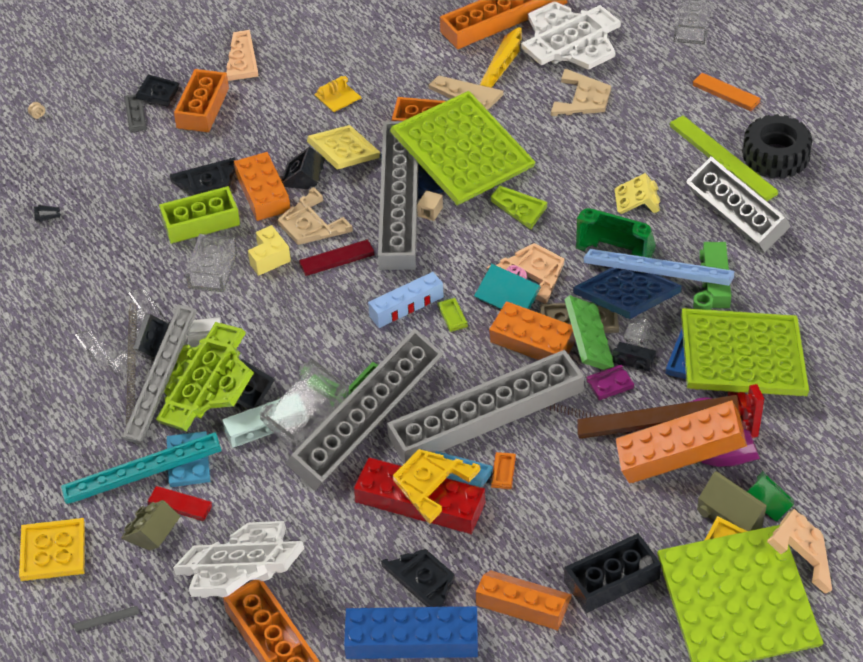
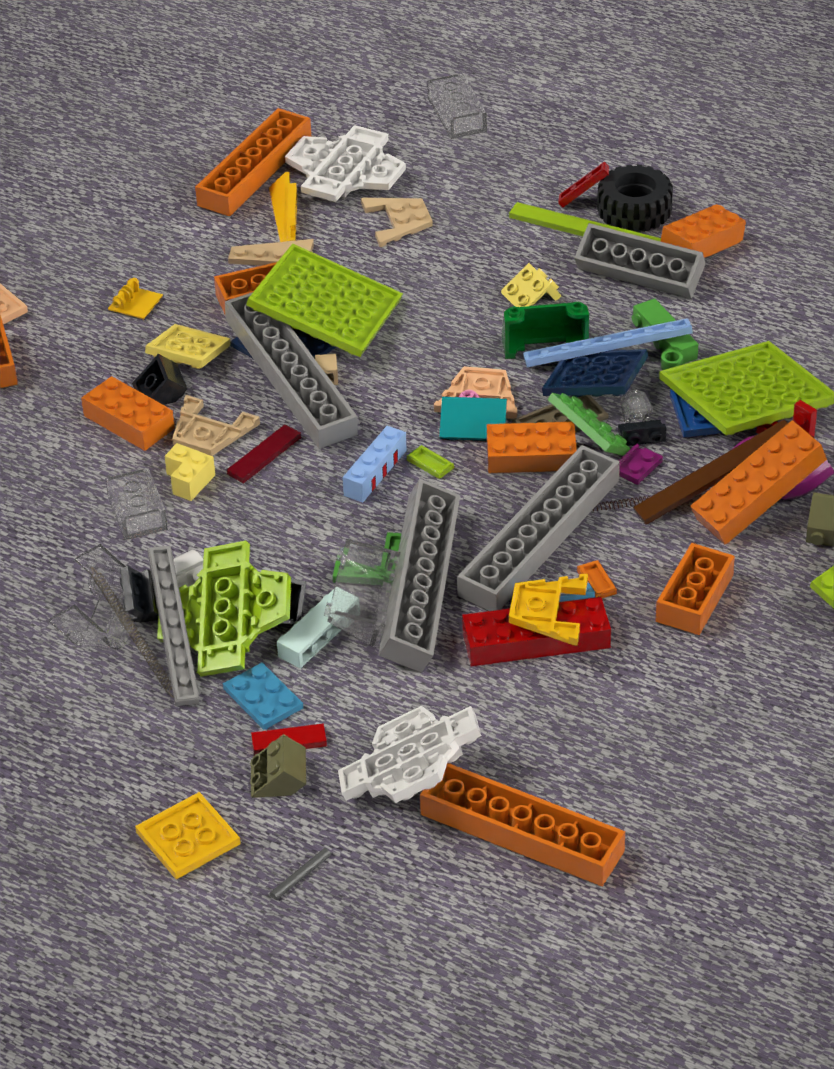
camera: 30 degrees left, 5 degrees down
(141, 468) = (222, 722): teal tile -> none
(199, 214) = (82, 463): lime brick -> none
(205, 177) = (54, 429): black wing -> none
(411, 632) = (627, 752): blue brick -> none
(422, 576) = (596, 701): black wing -> none
(519, 205) = (421, 339): lime wing -> none
(522, 599) = (710, 682): orange slope -> none
(568, 513) = (695, 588): none -> orange brick
(612, 572) = (777, 622): black brick -> none
(726, 91) = (541, 167): orange tile -> none
(741, 119) = (583, 184): none -> red tile
(810, 198) = (706, 231): none -> orange brick

